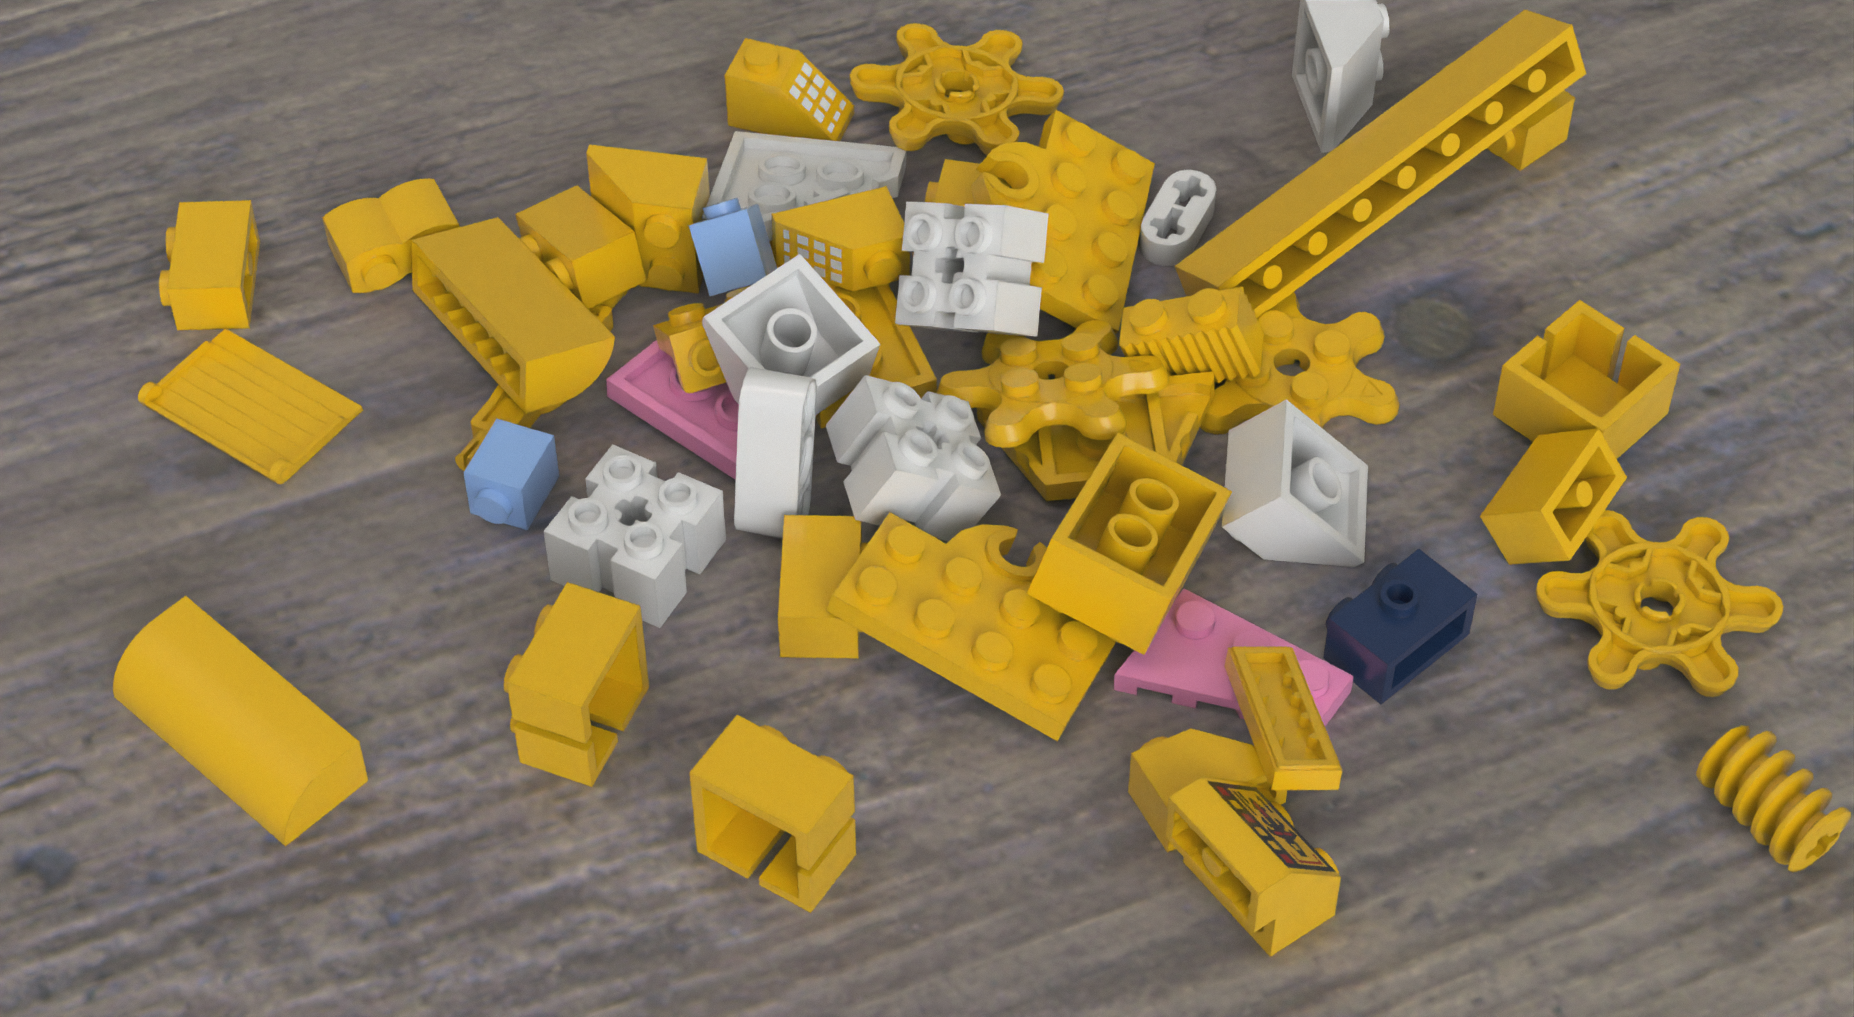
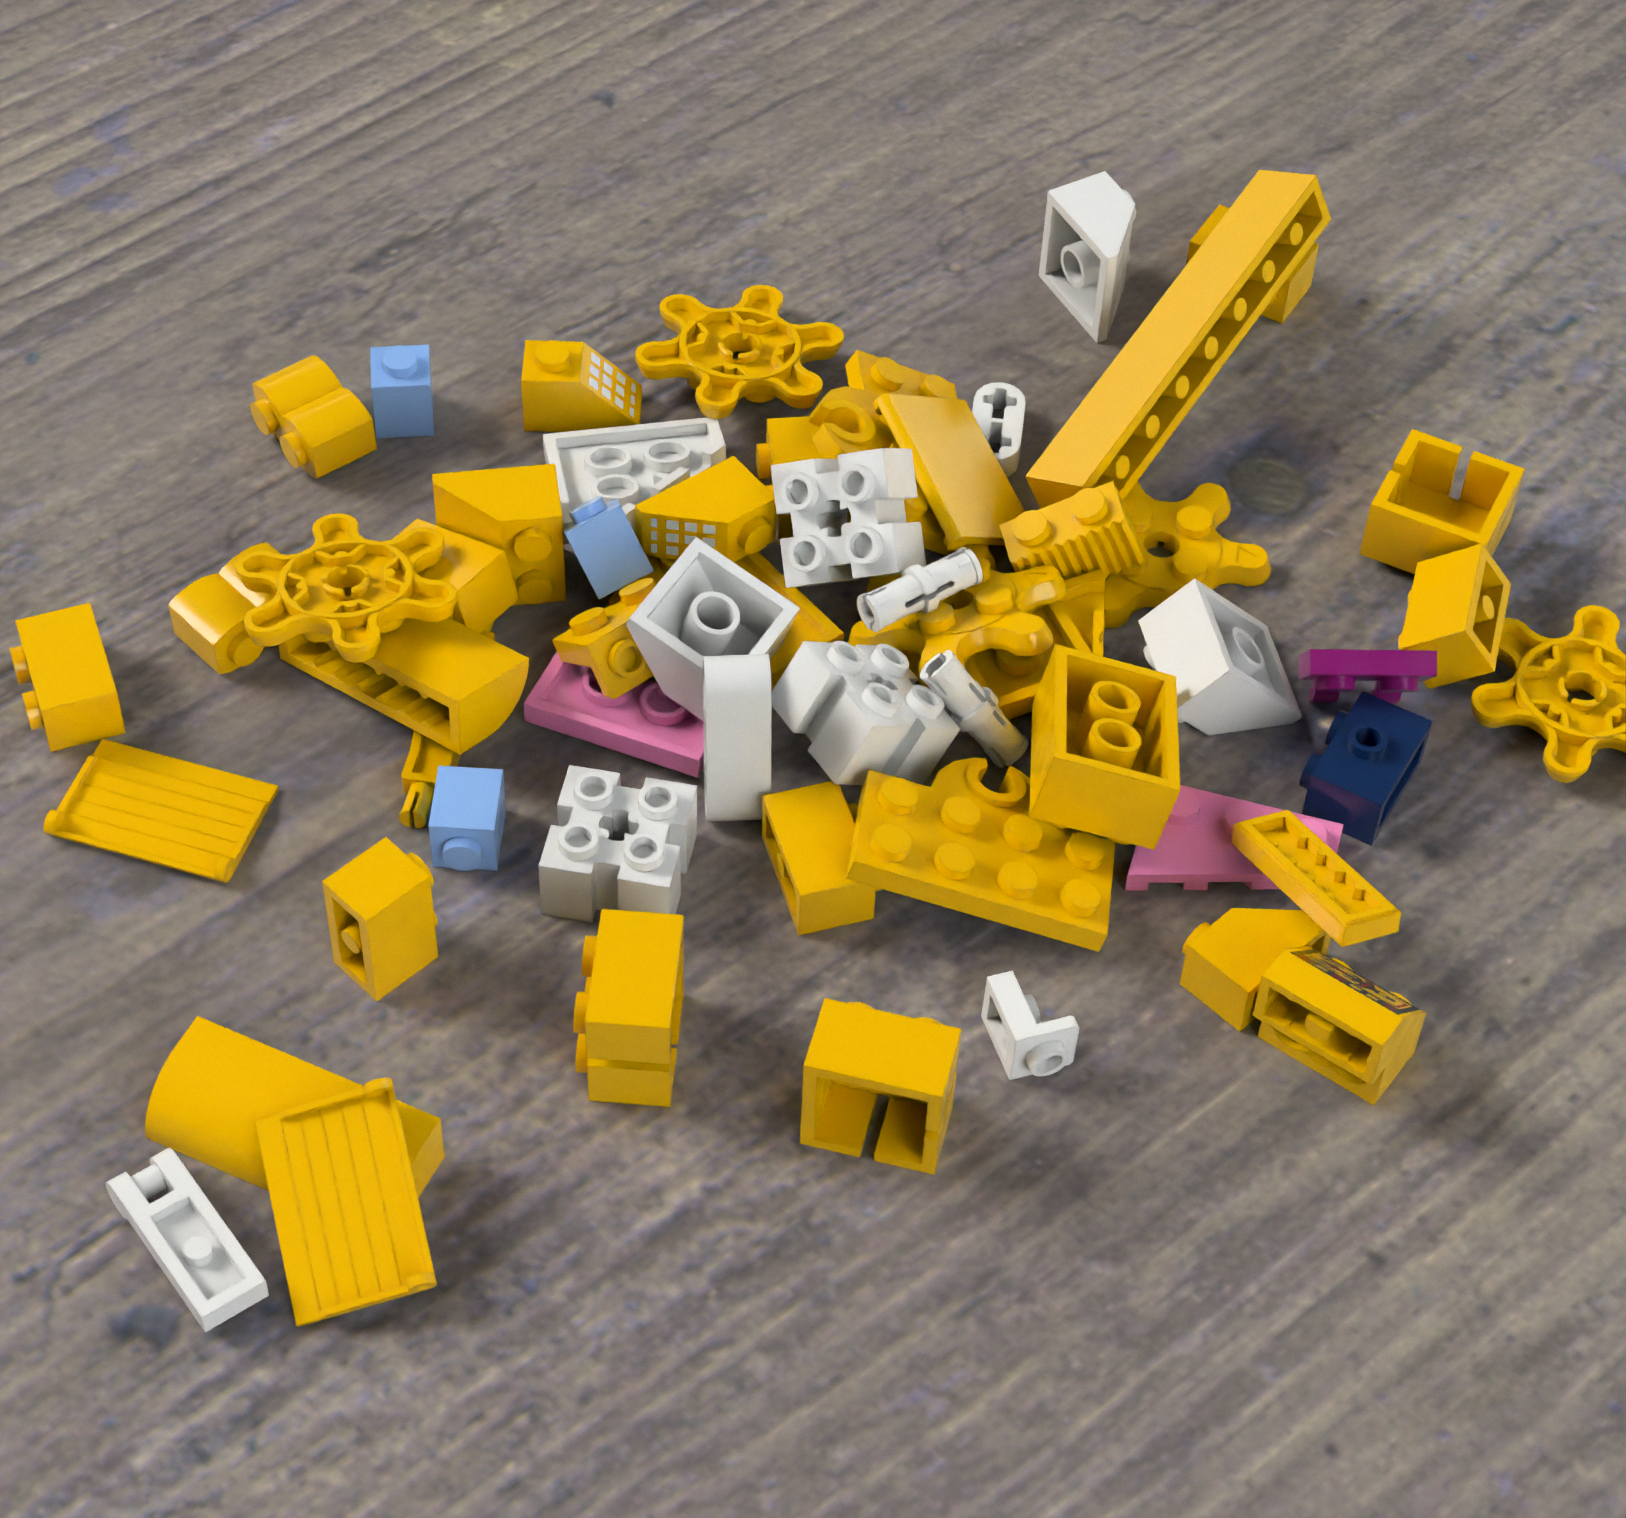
camera: 20 degrees left, 0 degrees up
(105, 797) = (188, 1240): none -> white plate
(247, 797) = (345, 1203): none -> yellow piece
(387, 545) = (381, 917): none -> yellow brick
(503, 226) = (311, 583): none -> yellow plate
(530, 72) = (313, 417): none -> yellow brick
(620, 64) = (402, 391): none -> light blue brick
(947, 811) = (1017, 1031): none -> white bracket
(1010, 351) = (919, 589): none -> white pin
(1022, 477) = (974, 708): none -> white pin
(1104, 240) = (952, 466): none -> yellow piece
(1400, 521) = (1391, 669): none -> magenta plate

